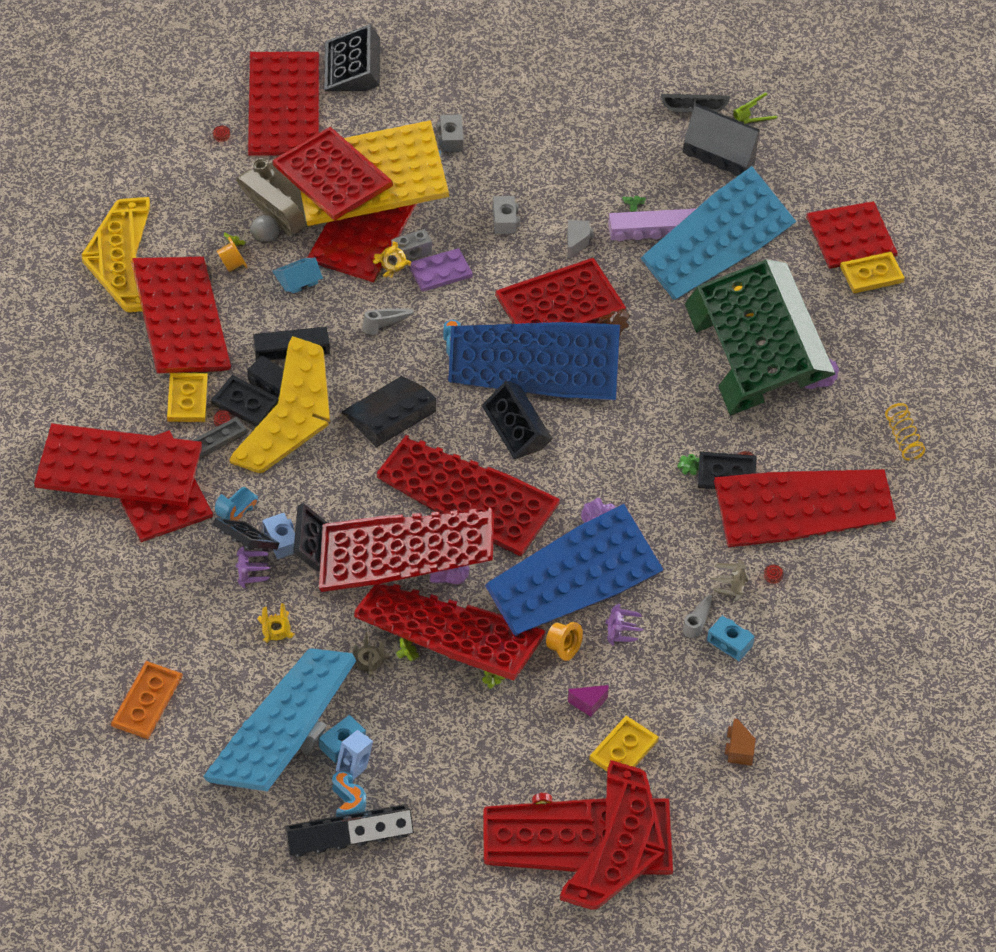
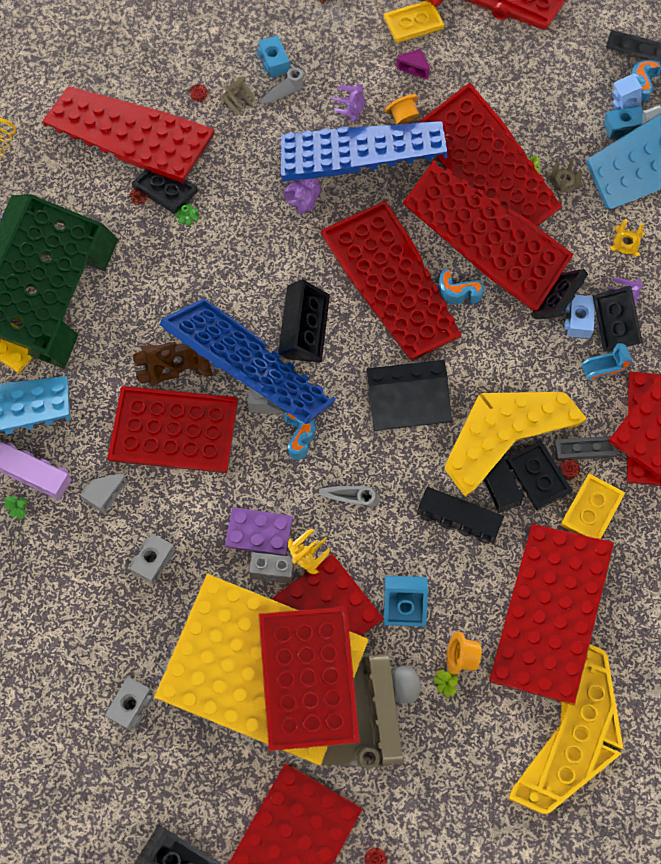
camera: 145 degrees left, 15 degrees up
(404, 504) = (458, 292): none -> dark azure animal

